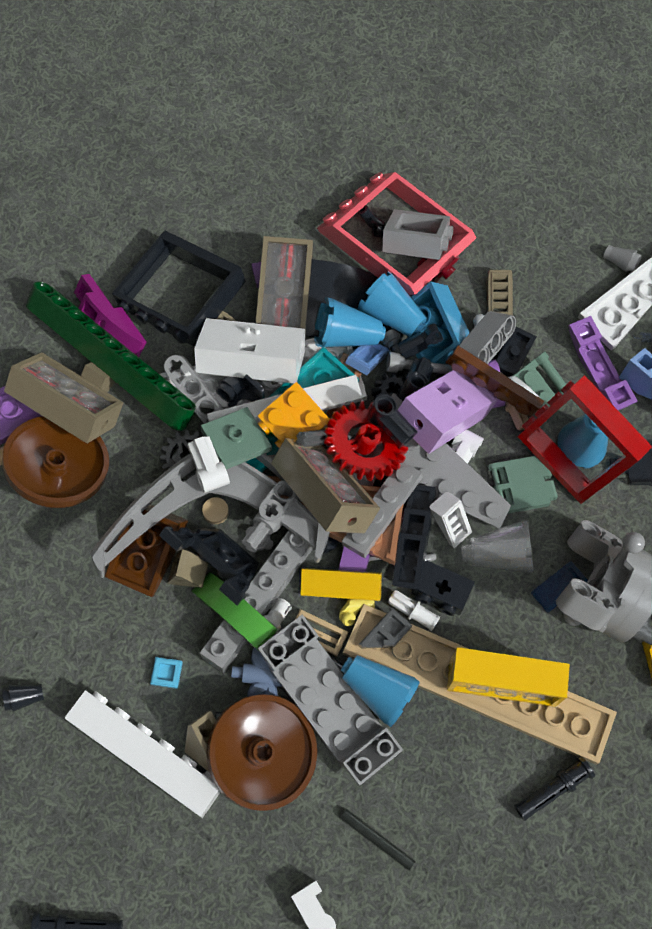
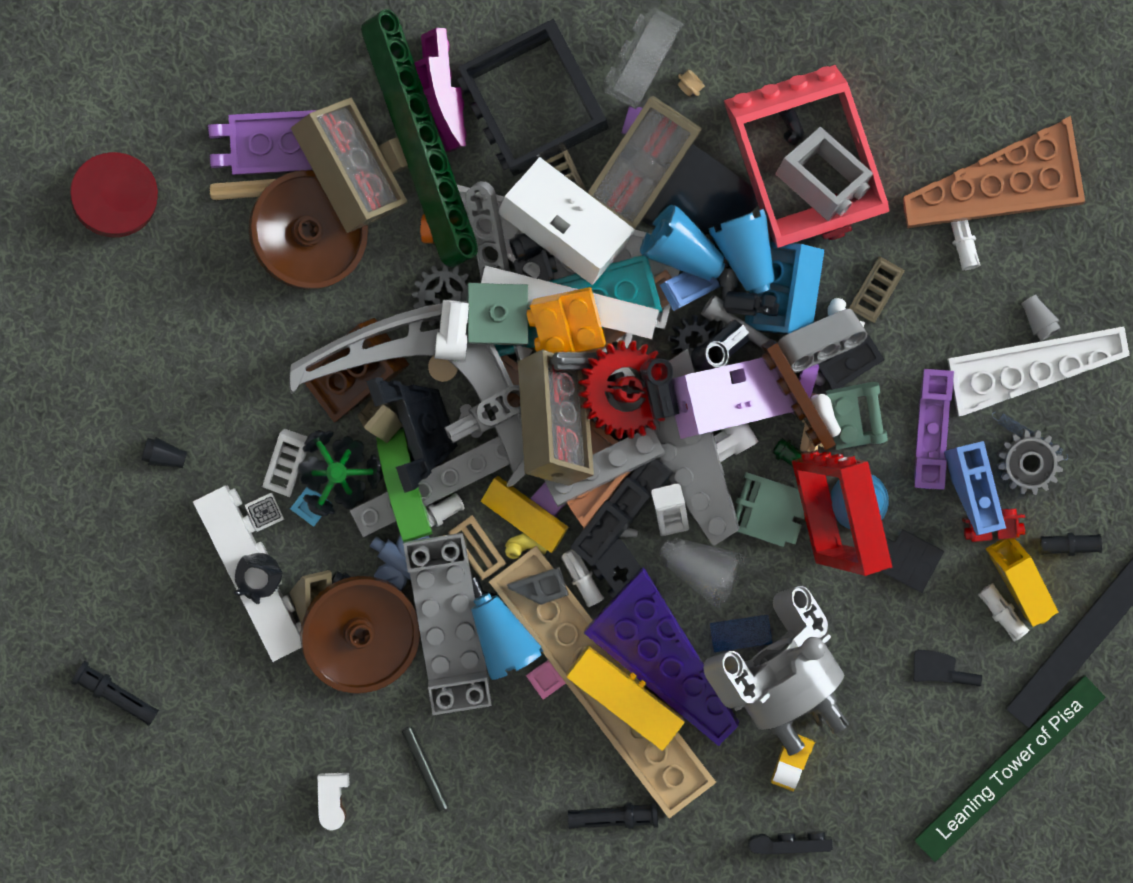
camera: 35 degrees right, 20 degrees up
(130, 698) = (264, 512): none -> tile
(138, 648) = (292, 438): none -> white slope
(150, 418) = (426, 235): none -> orange tile
(157, 734) = (259, 561): none -> black piece
(173, 617) = (318, 472): none -> black plant
(242, 225) = (642, 56): none -> clear wedge
(286, 229) = (690, 83): none -> tan plate
(432, 707) = (545, 679): none -> bright pink tile
(496, 623) = (651, 644): none -> dark purple wing
(509, 436) = (786, 451): none -> dark green pin
(538, 236) = (965, 245): none -> white axle
(542, 184) = (1017, 179): none -> nougat wing

